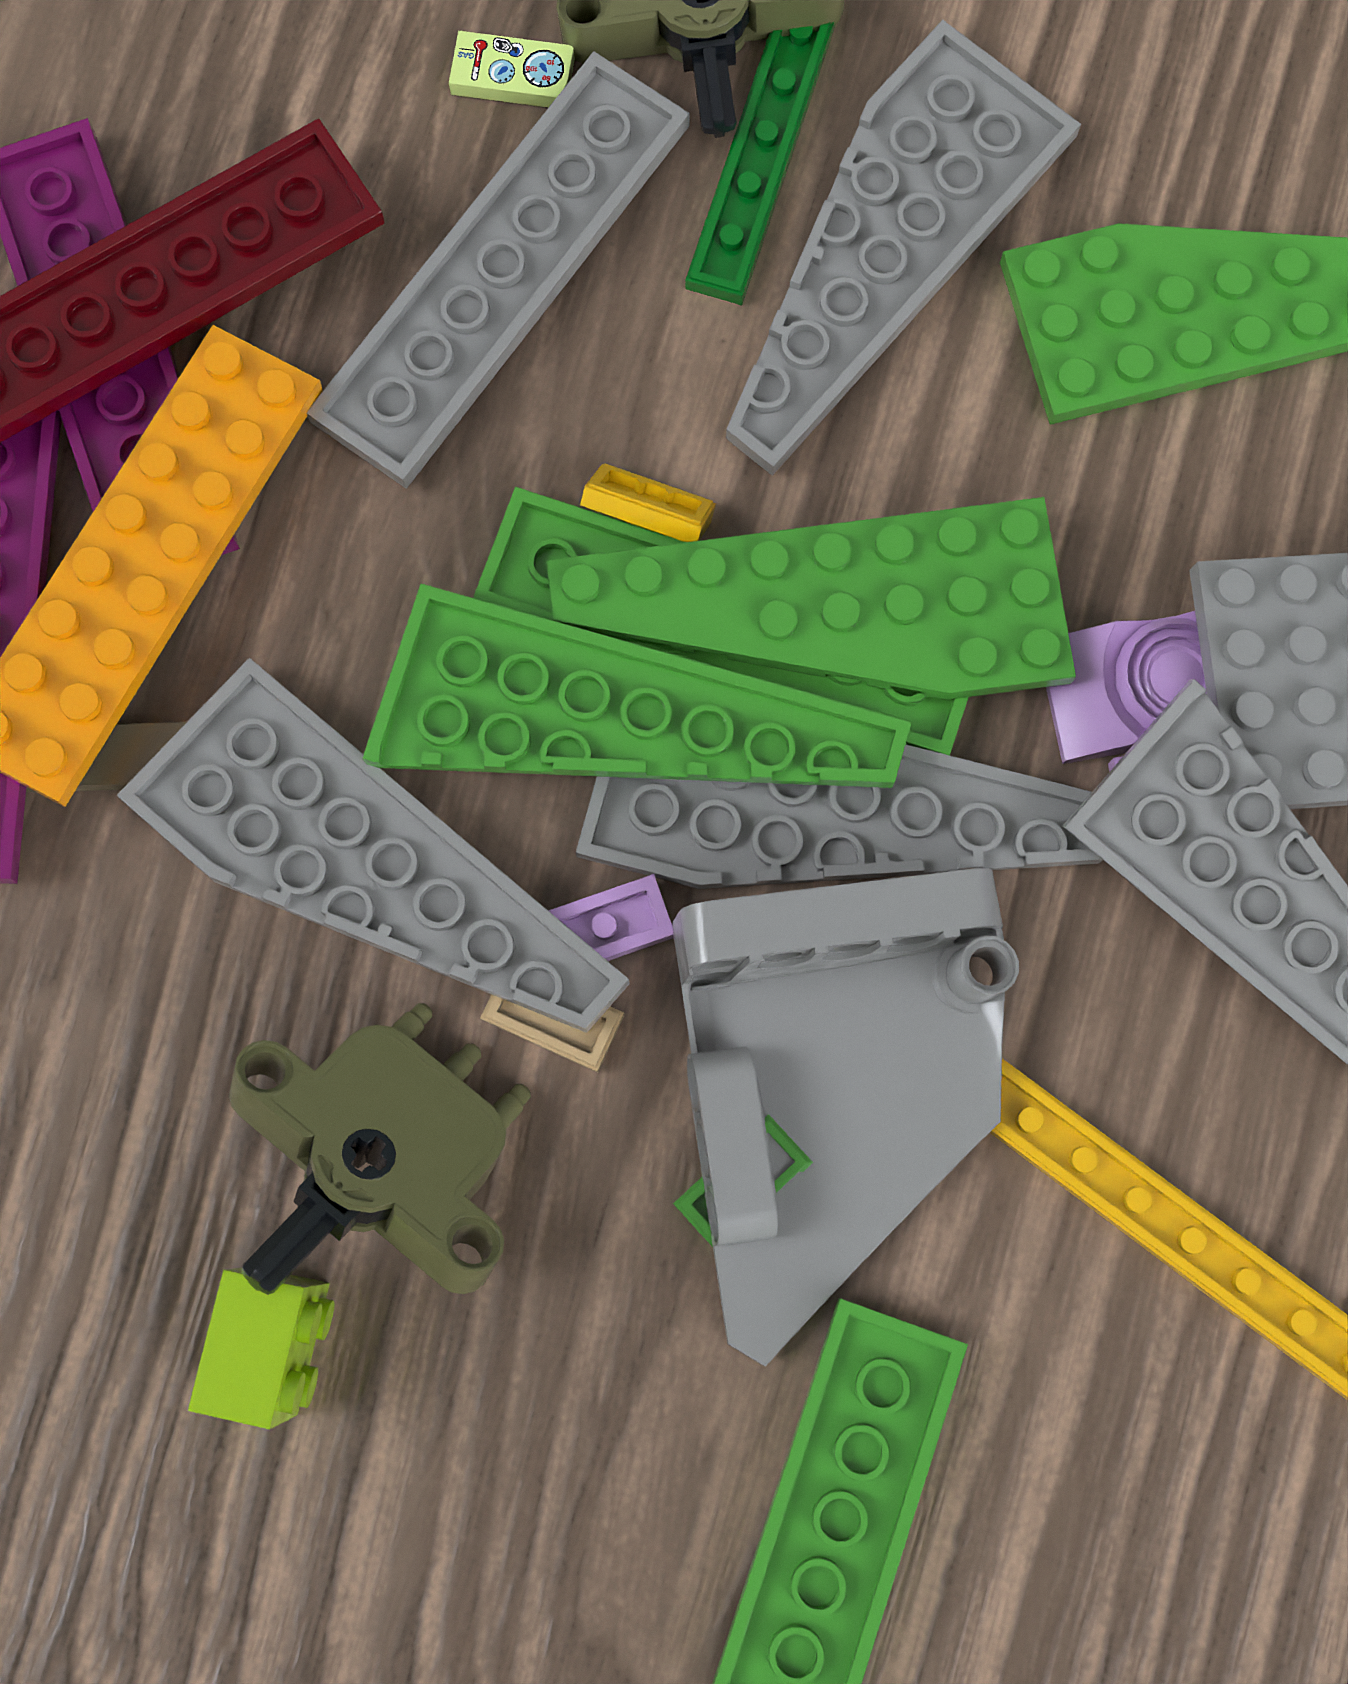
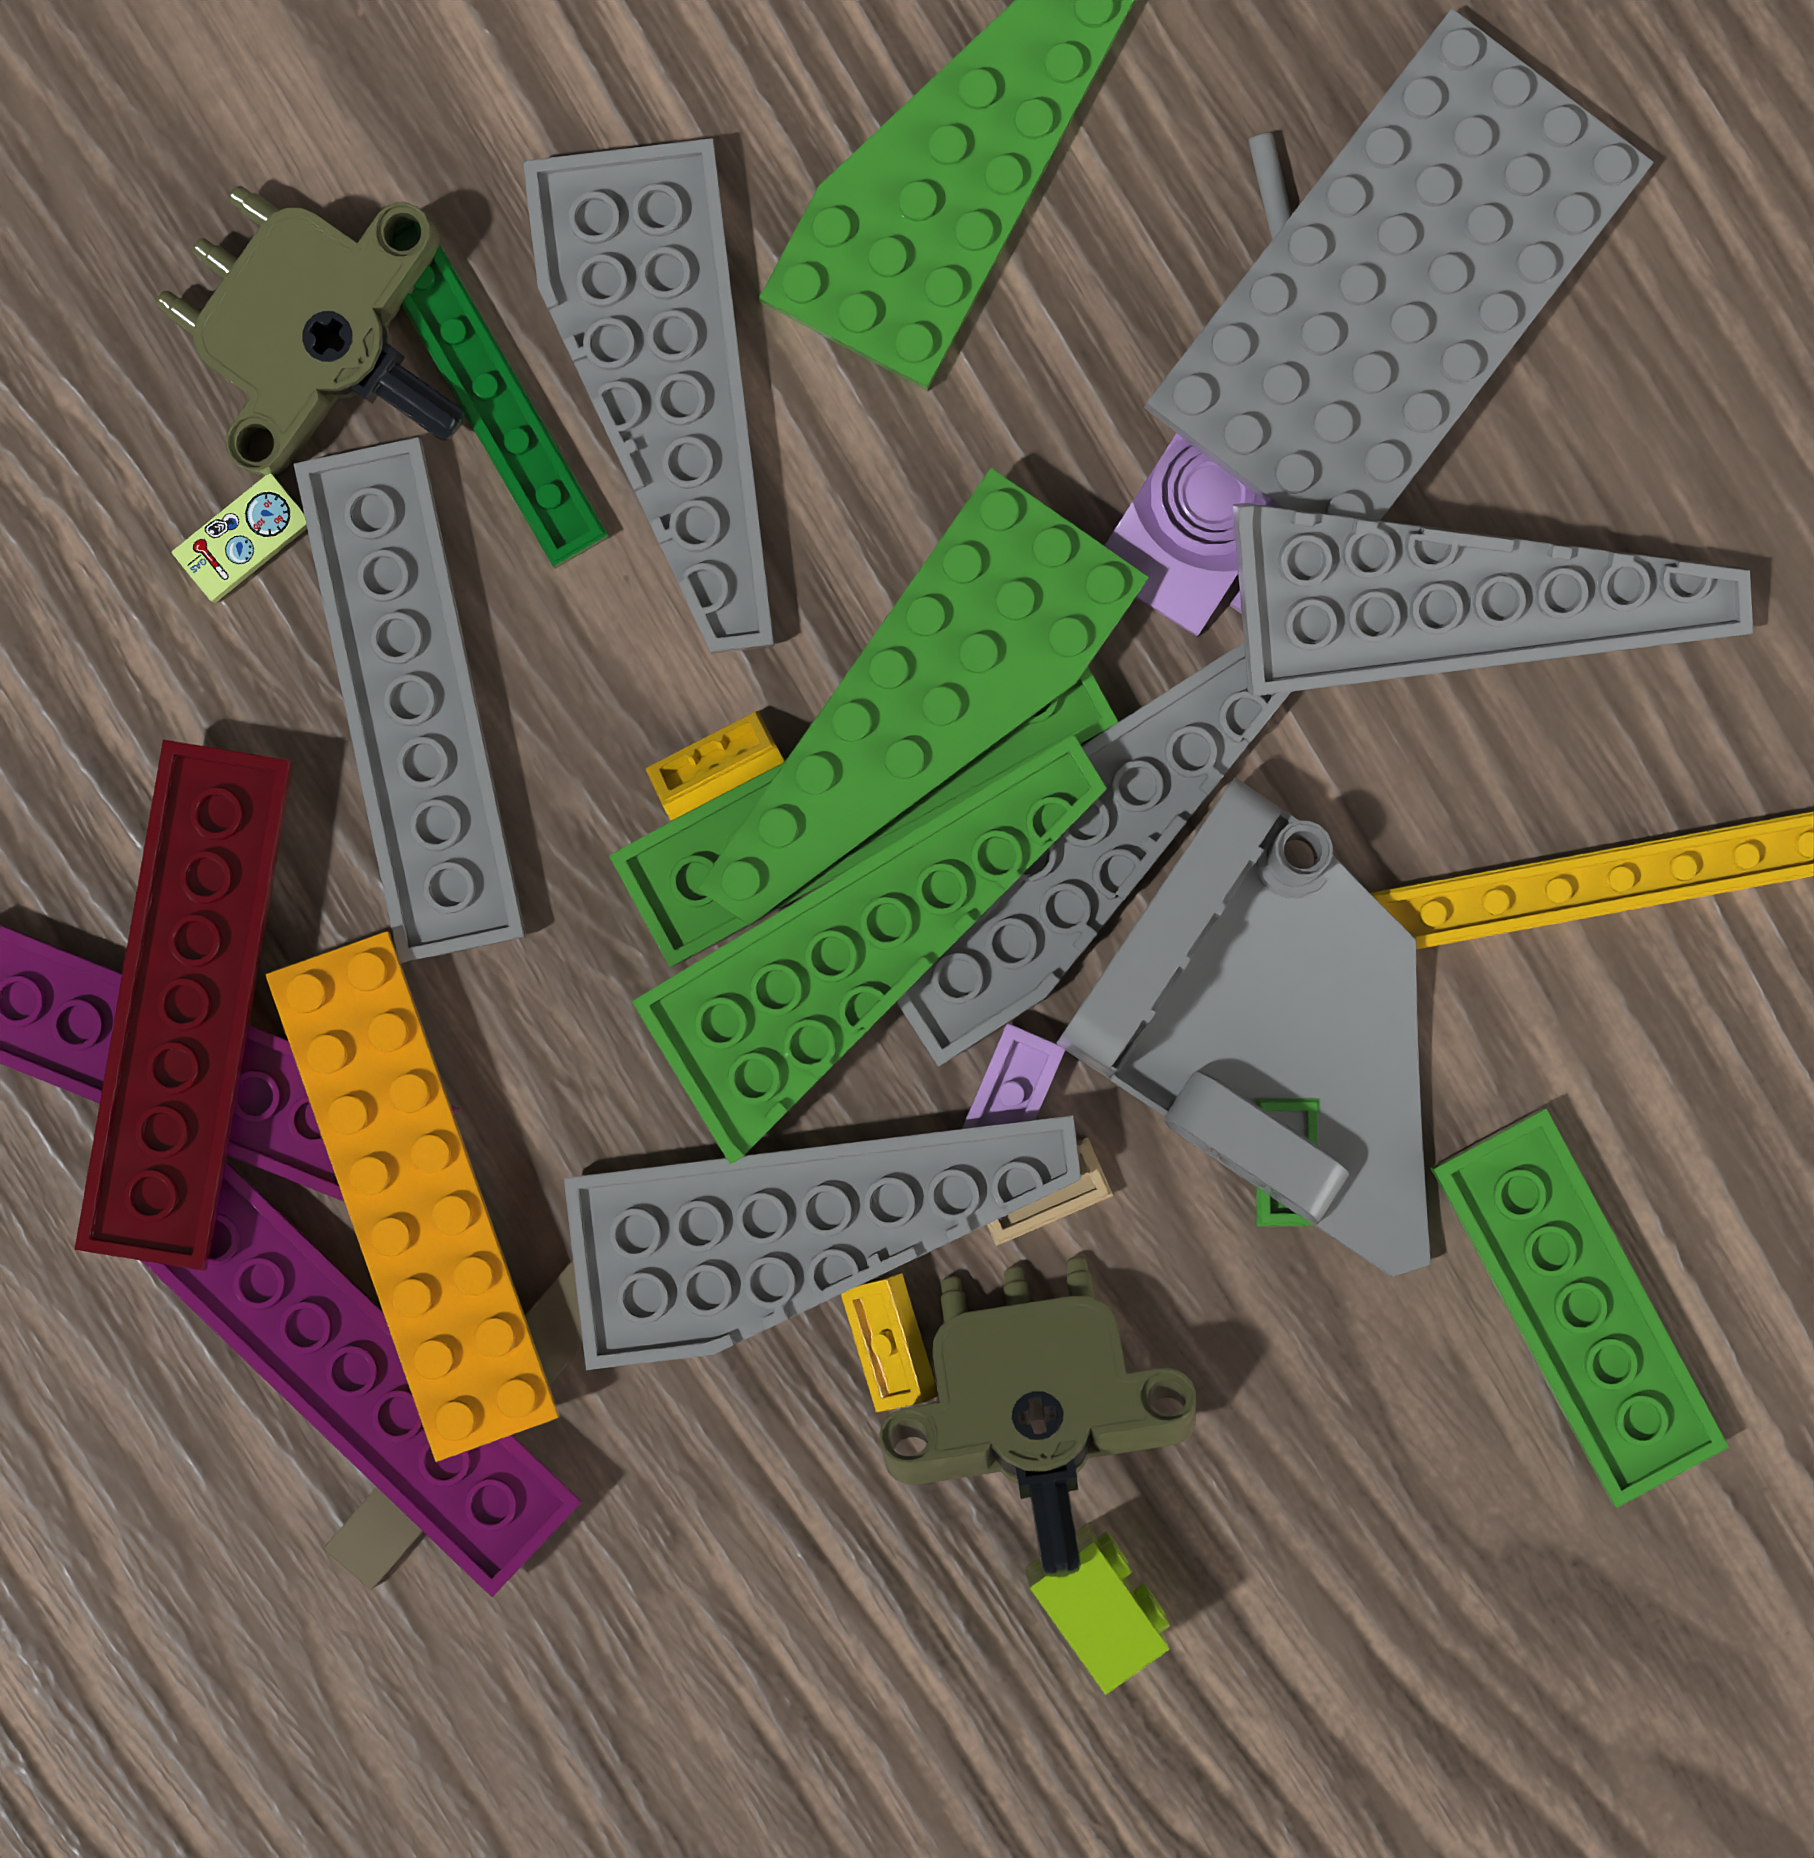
camera: 50 degrees left, 10 degrees up
(335, 1001) = (889, 1343): none -> yellow plate

